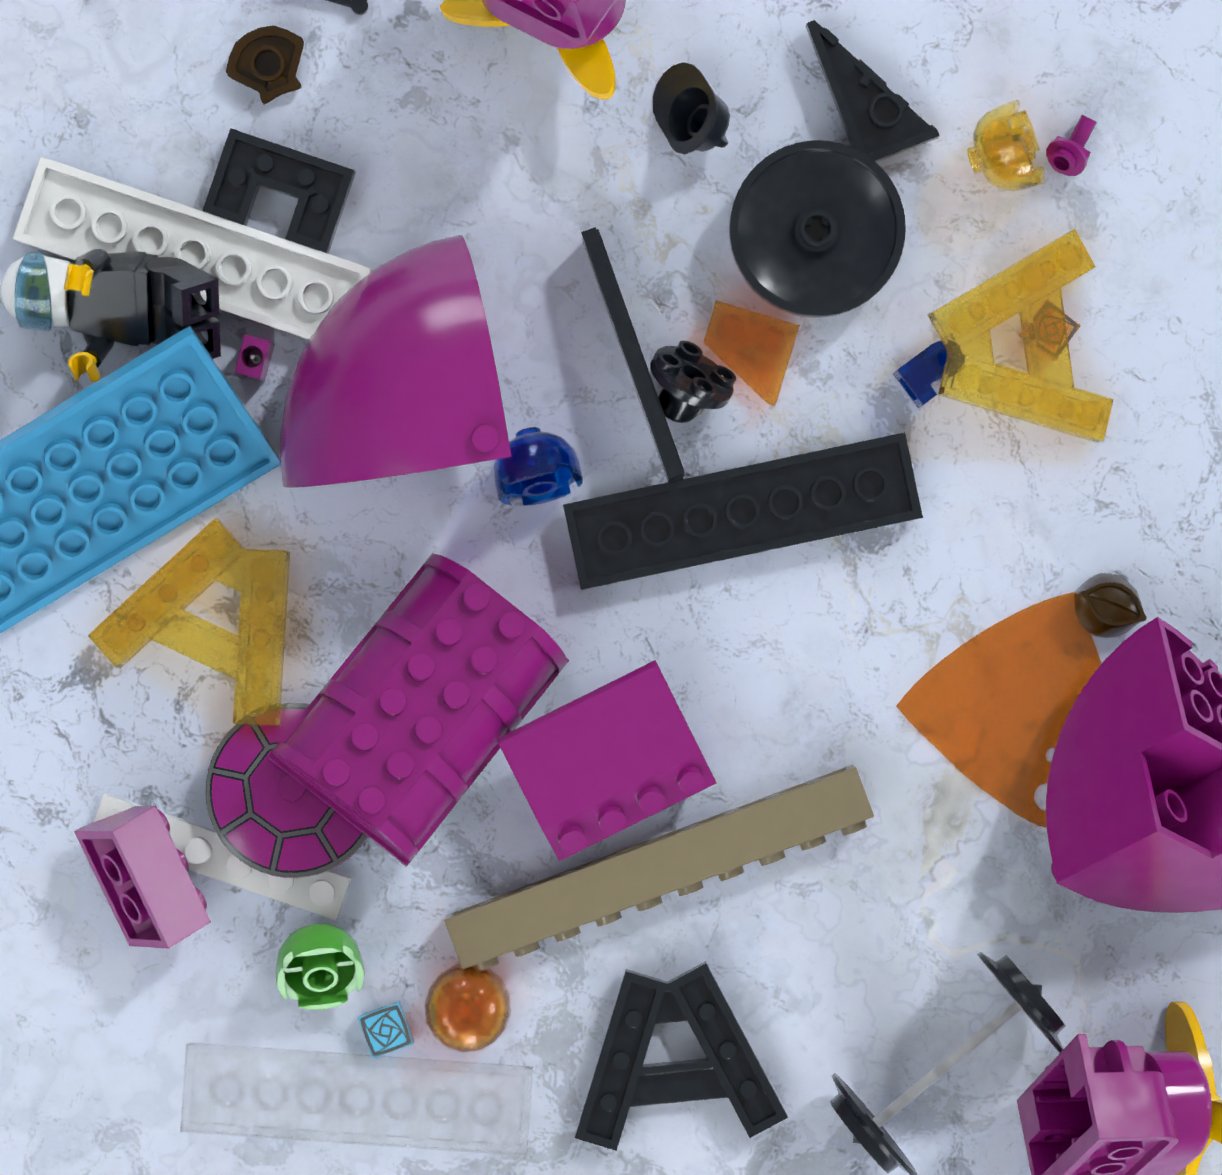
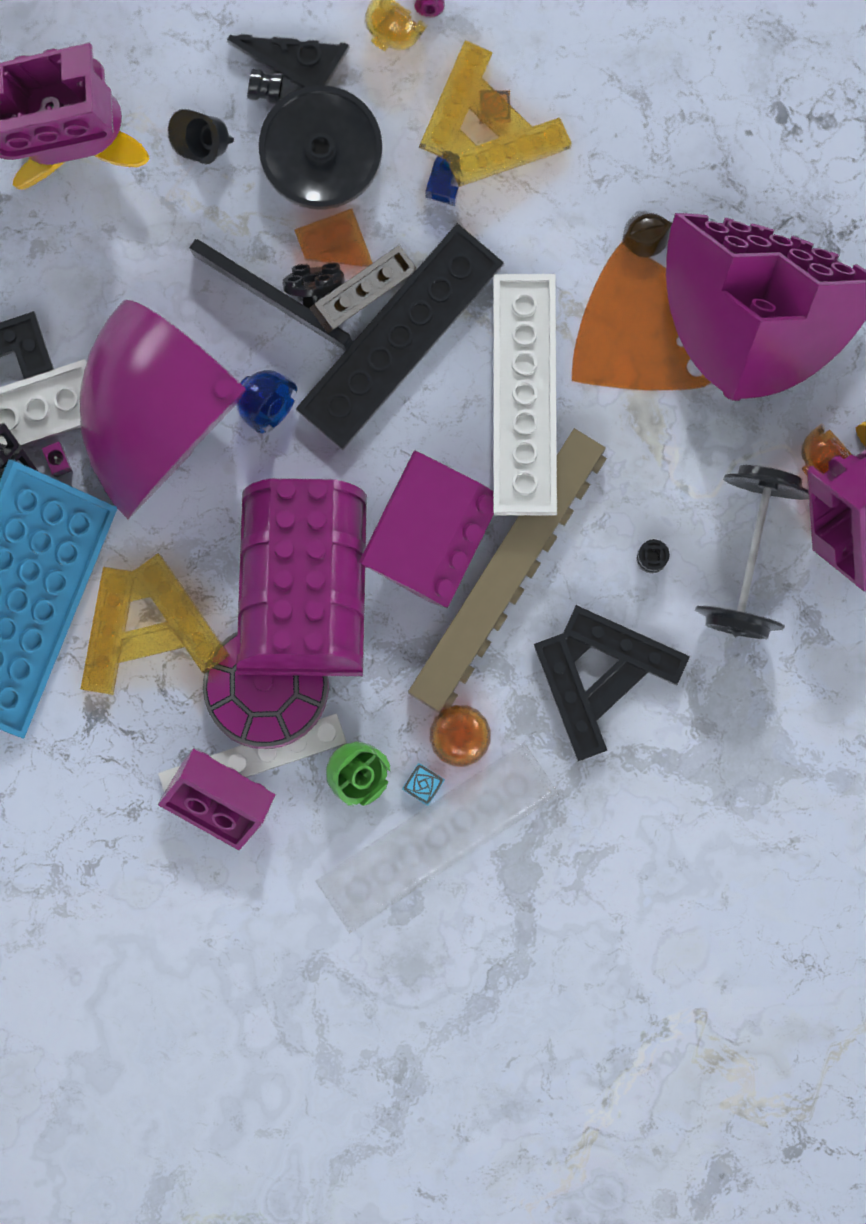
camera: 45 degrees left, 5 degrees down
(739, 430) = (363, 289): none -> plate
(808, 110) = (265, 86): none -> black wheel
(829, 688) = (525, 394): none -> white plate
(830, 967) = (650, 560): none -> black wheel
(1111, 1010) = (821, 448): none -> clear orange cylinder

